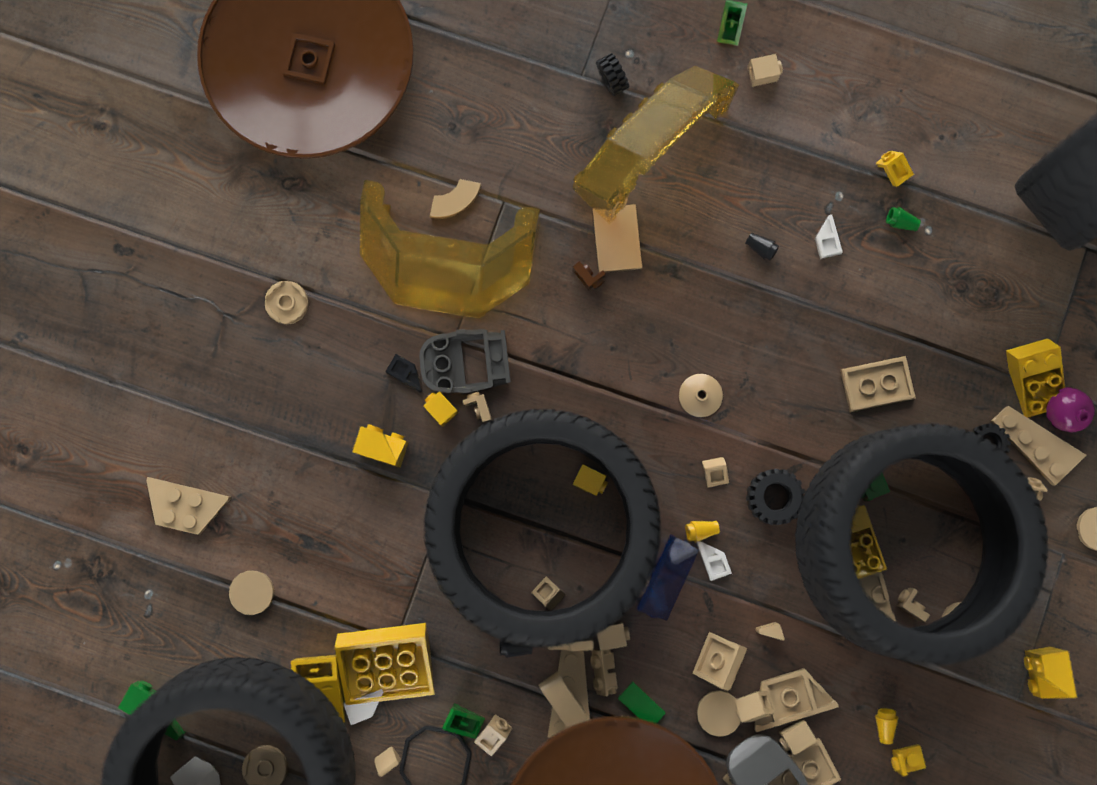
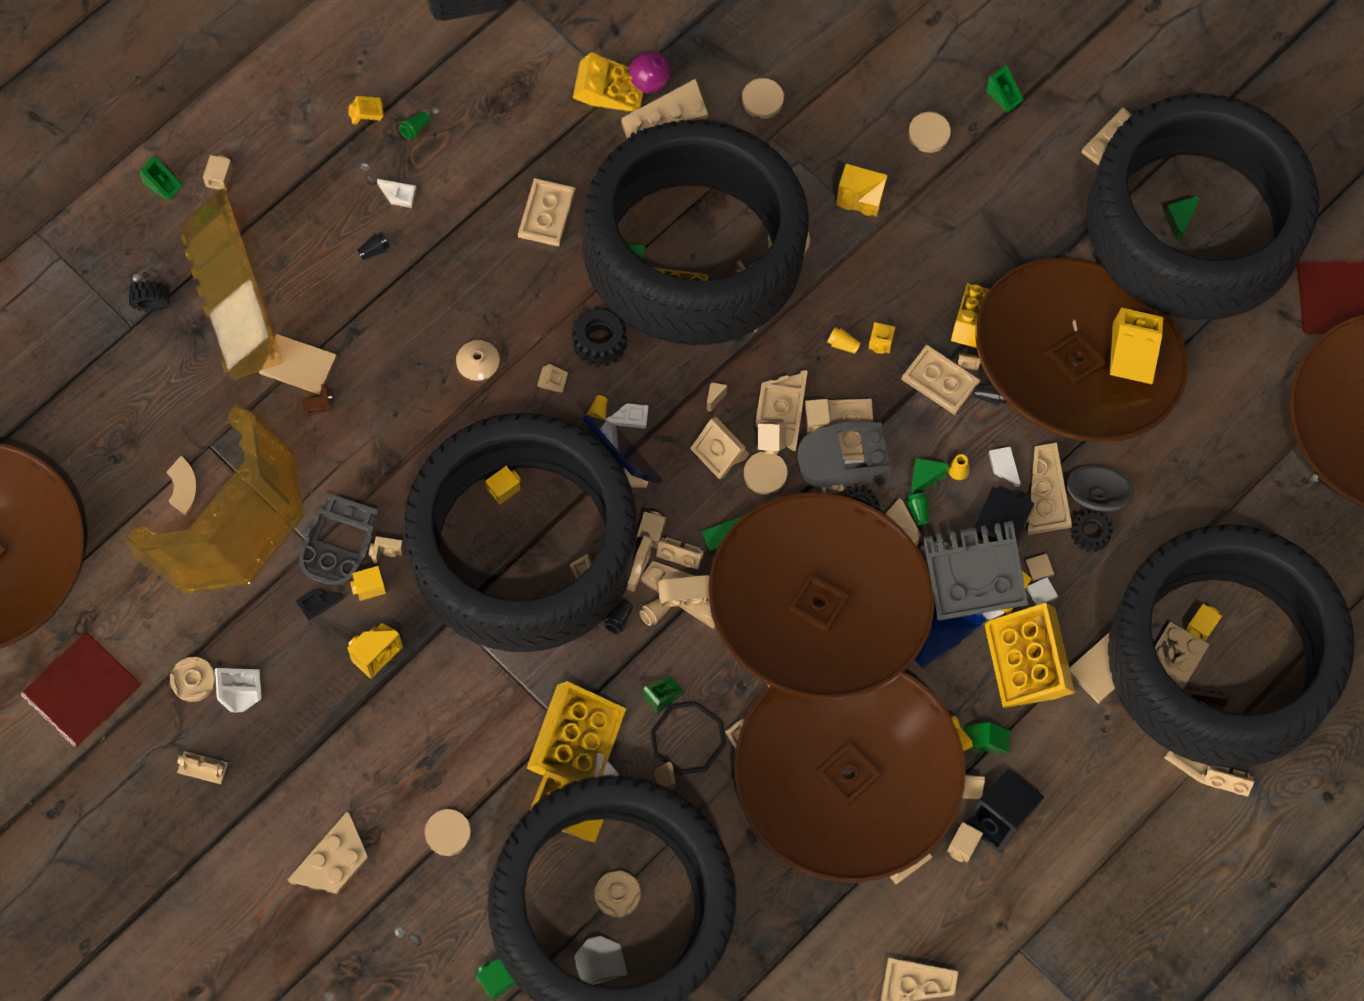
camera: 70 degrees left, 15 degrees down
(212, 352) = (202, 767): none -> tan hinge
(234, 213) = (80, 689): none -> clear red piece
(294, 345) = (238, 688): none -> white slope
(493, 735) = (688, 672): tan bracket -> none
(534, 675) = (653, 612): none -> tan cone

